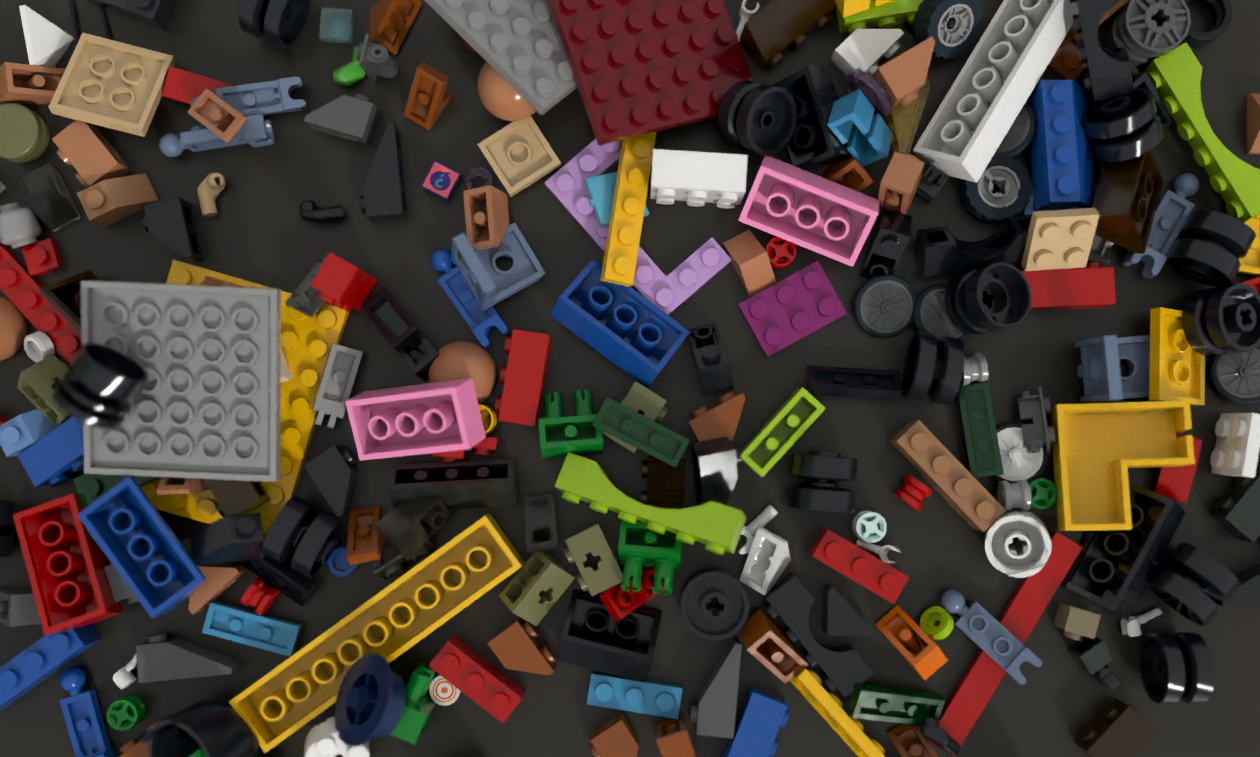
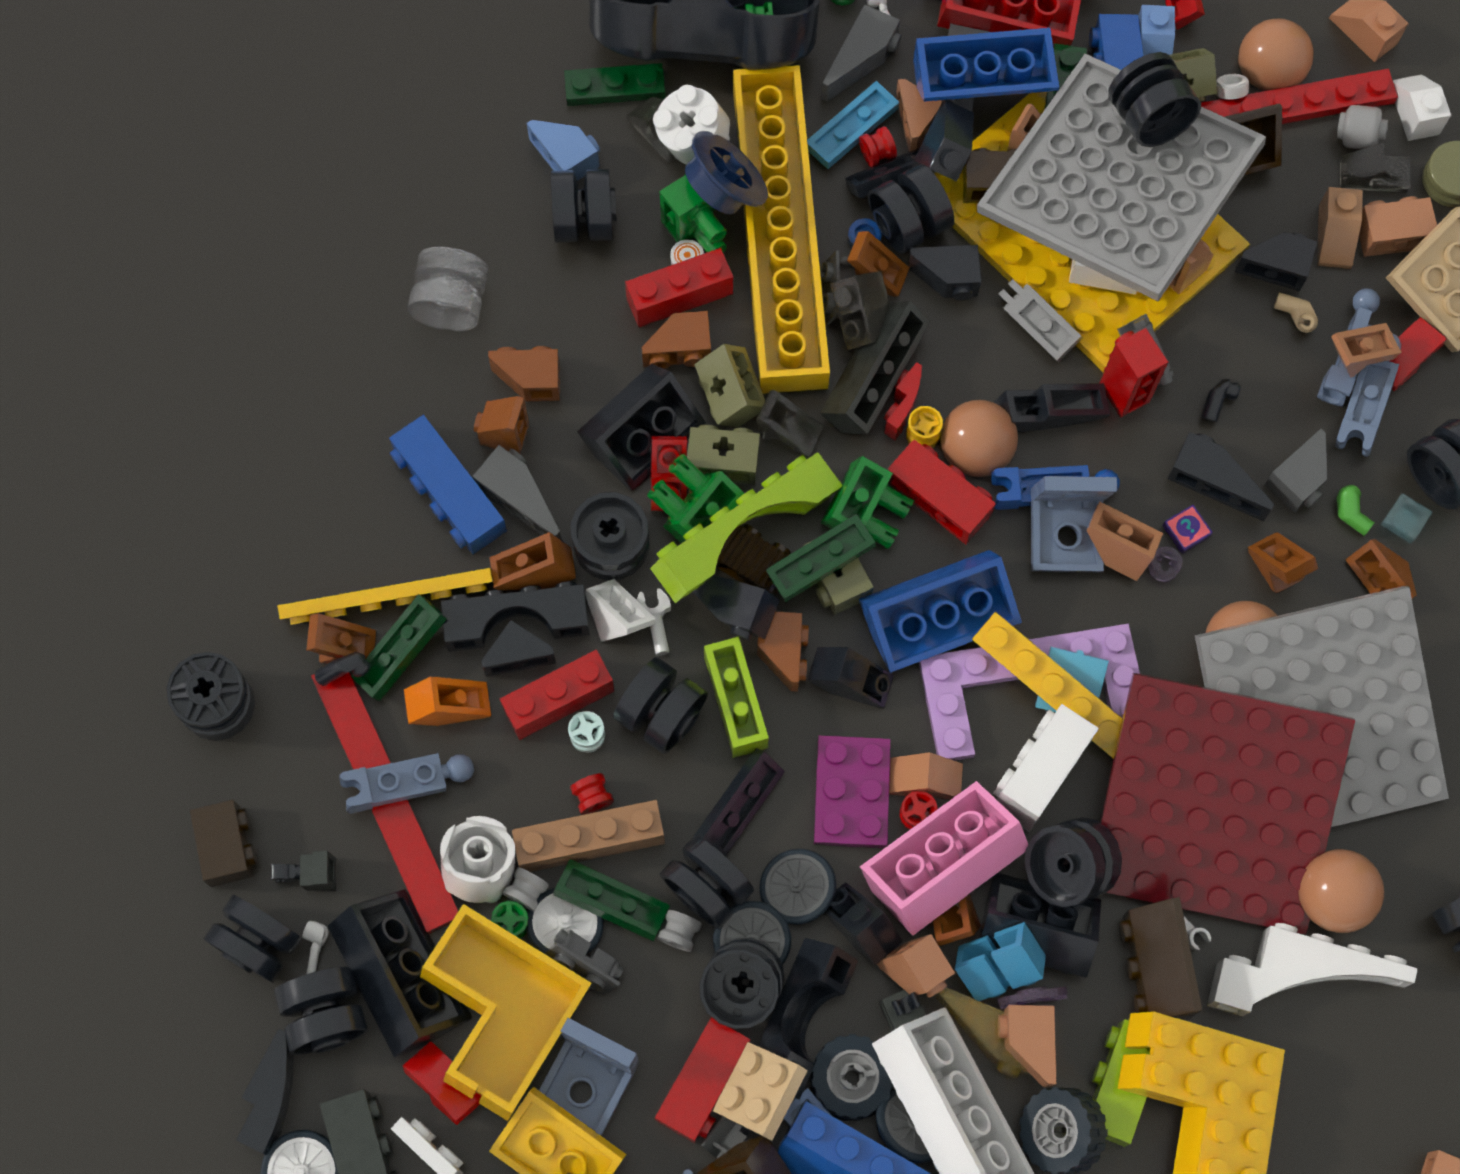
camera: 115 degrees right, 15 degrees down
(42, 257) = (1319, 135): red plate -> none
(375, 59) = (1348, 528): dark grey hinge -> none
(416, 419) = (960, 363): bright pink brick -> none
(519, 155) = (1169, 615): tan plate -> none
(634, 695) = (561, 425): dark azure plate -> none
(865, 49) = (1083, 1028): white slope -> none
(879, 550) = (552, 730): white hand -> none
(936, 623) = (449, 738): lime tile -> none
(1076, 621) = (359, 876): dark tan plate -> none

